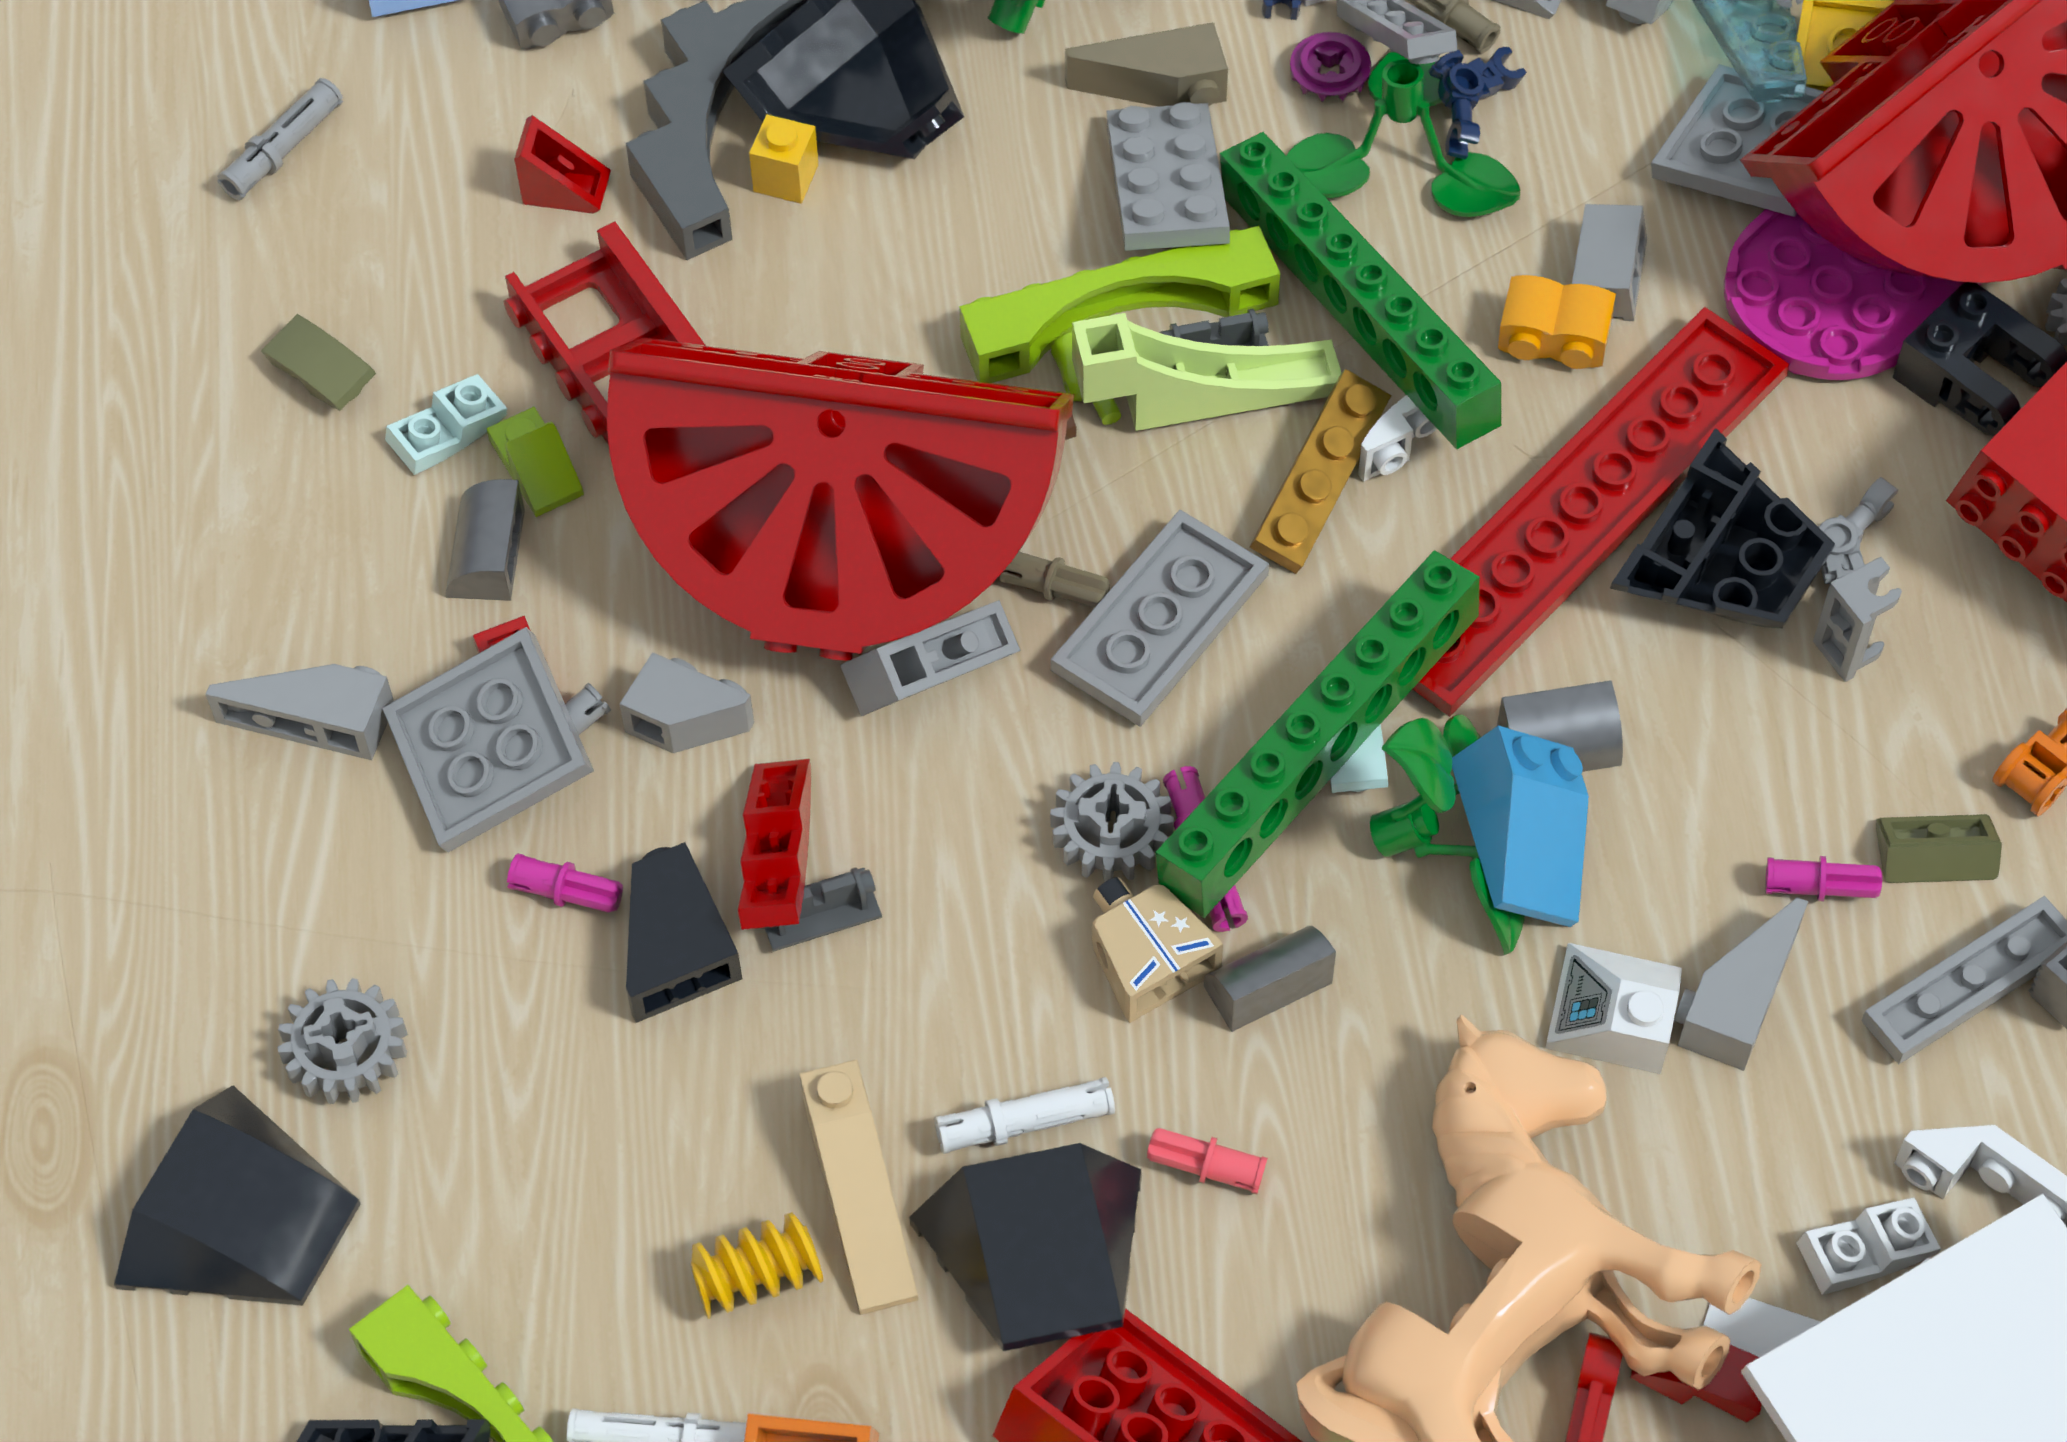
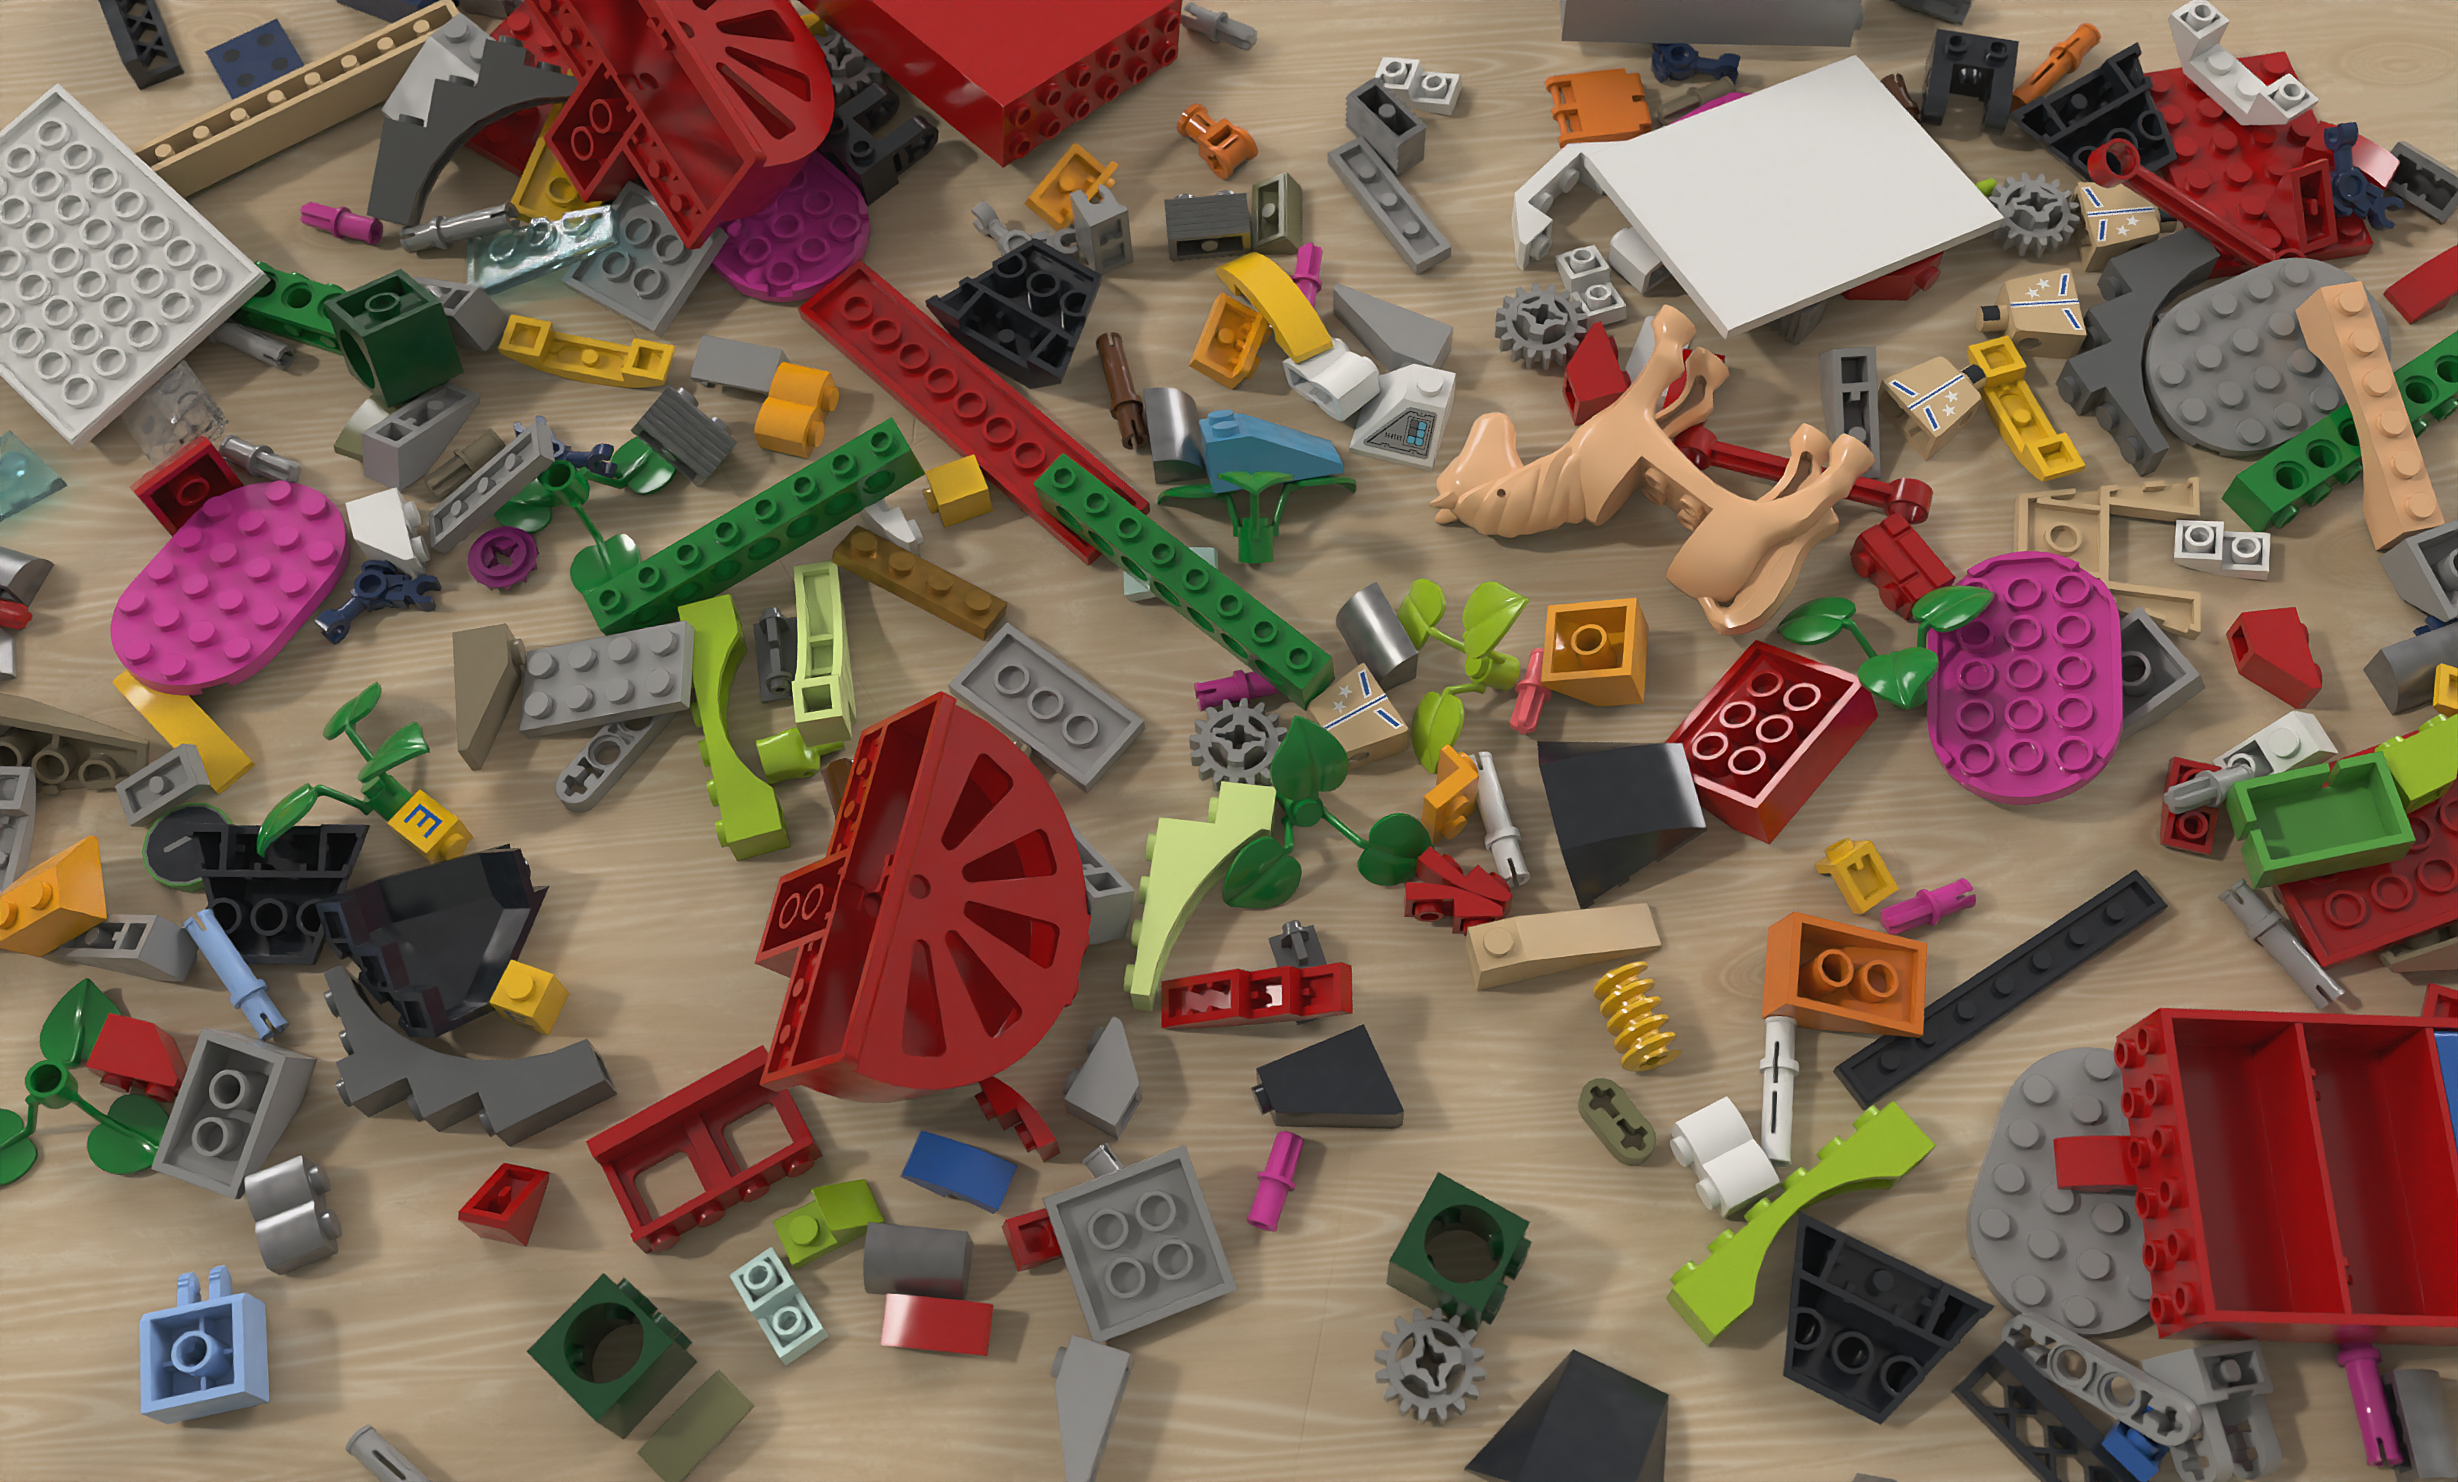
camera: 85 degrees left, 5 degrees up
(386, 273) = (571, 1342): none -> dark green brick
(412, 564) = (937, 1324): none -> red slope
(450, 1010) = (1450, 1208): none -> dark green brick
(575, 1364) = (1724, 1158): none -> white brick
(582, 570) = (958, 1170): none -> blue slope
(626, 1247) = (1608, 1129): none -> olive beam
(631, 636) = (1011, 1108): none -> red slope
(897, 1067) = (1434, 901): none -> red slope
(925, 1084) = (1446, 871): none -> red slope
(939, 766) = (1184, 868): none -> yellowish green arch
(980, 47) = (430, 829): none -> yellow brick
(1033, 840) = (1304, 765): none -> green plant
(1034, 1050) = (1452, 798): none -> light orange bracket
(1070, 179) = (614, 734): none -> light grey beam
(1232, 1093) = (1487, 619): none -> lime plant
(1260, 1228) = (1596, 651): none -> light orange slope
(1452, 499) = (957, 491): none -> yellow brick
(1498, 206) = (685, 434): none -> flat silver brick
(1615, 101) = (584, 358): none -> yellow slope
(1634, 668) = (1125, 403): none -> reddish brown pin
(1665, 908) = (1335, 380): none -> white brick
(1710, 1226) = (1593, 376): none -> red slope
(1715, 789) = (1230, 342): none -> light orange bracket
(1755, 1178) = (1540, 326): none -> light grey gear
(1765, 827) = (1280, 302): none -> yellow slope
(1901, 754) = (1207, 225): none -> flat silver brick
(1941, 592) = (1073, 172): none -> light orange bracket

